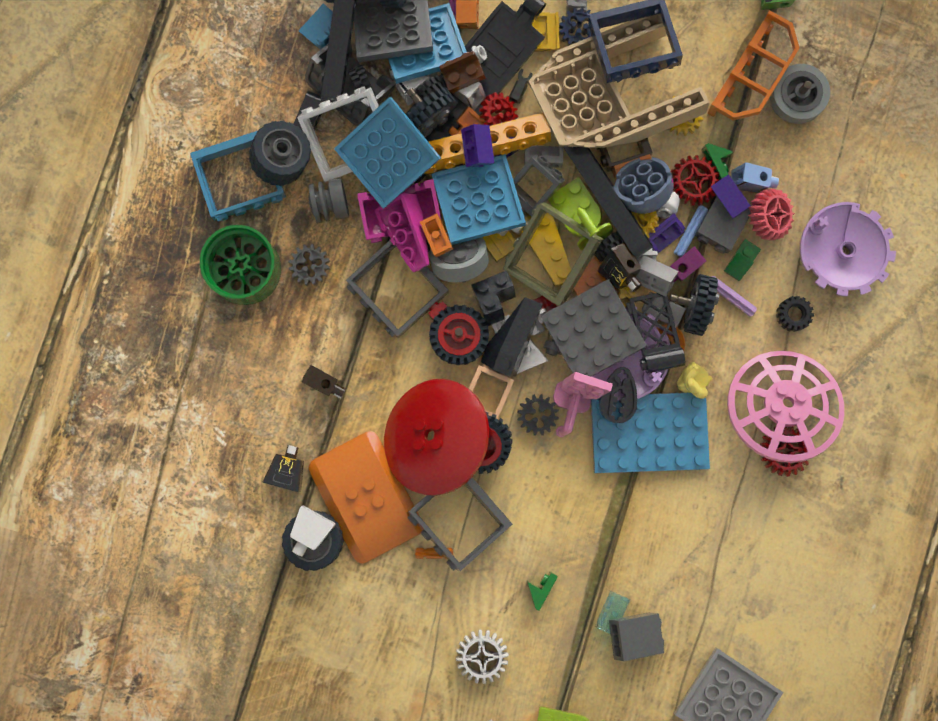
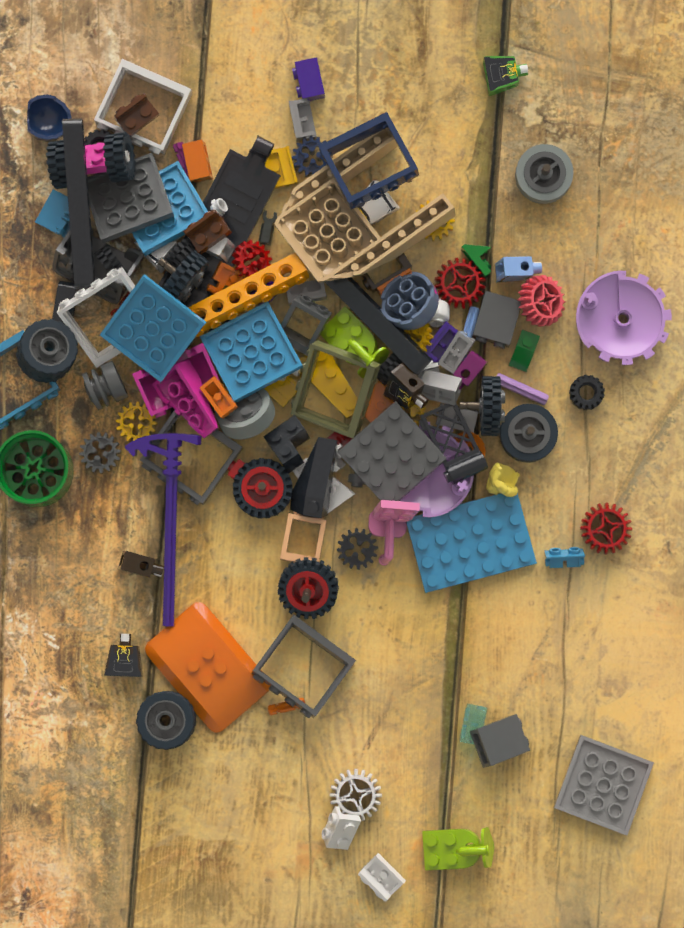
camera: 10 degrees left, 0 degrees up
(309, 530) = (162, 709): white torso -> none
(341, 249) = (129, 414): none -> yellow gear
(383, 269) = (174, 441): none -> dark purple piece
(458, 440) = (284, 598): red dish -> none
(459, 688) = (340, 829): none -> white bracket
(477, 145) = (238, 300): dark purple hinge -> none
(540, 594) = (397, 723): green slope -> none
(628, 402) = (442, 513): black piece -> none
(633, 90) = (379, 209): none -> white torso
(678, 245) = (456, 351): none -> light grey hinge
(730, 196) = (496, 293): dark purple hinge -> none
(730, 466) = (573, 556): none -> dark azure hinge
(731, 340) = (528, 433): none -> wheel
(737, 73) = (484, 151): orange plate -> none
(781, 414) = (596, 495): bright pink dish -> none

